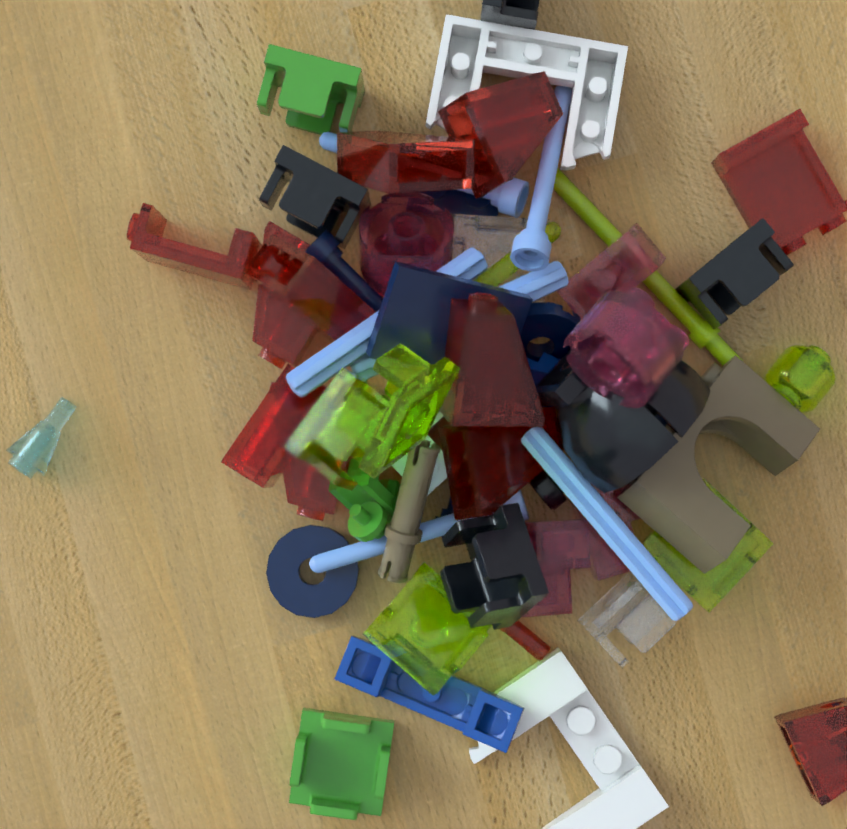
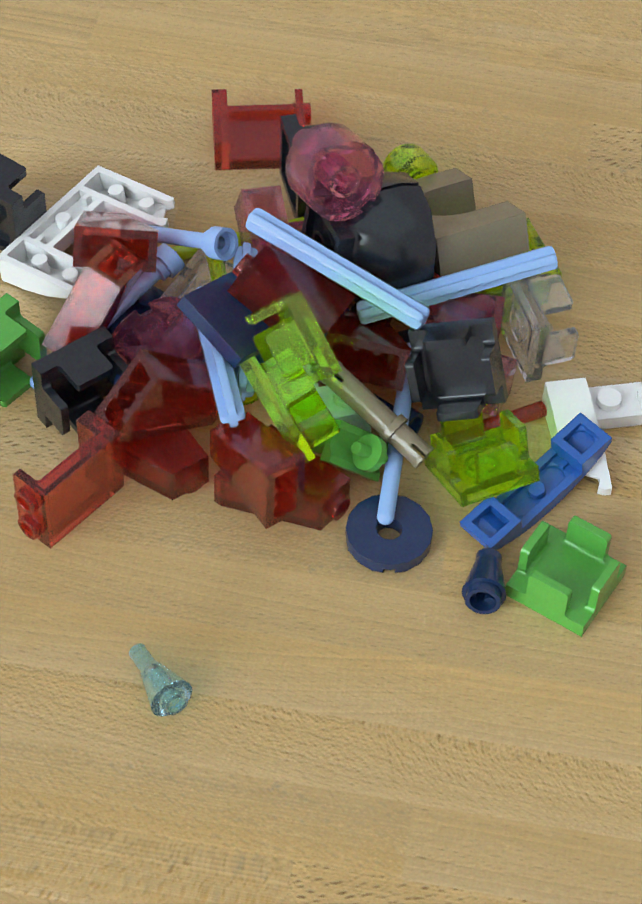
camera: 70 degrees left, 35 degrees down
(295, 689) = (485, 584): none -> dark blue cone
(532, 398) = (337, 268): none -> light blue axle

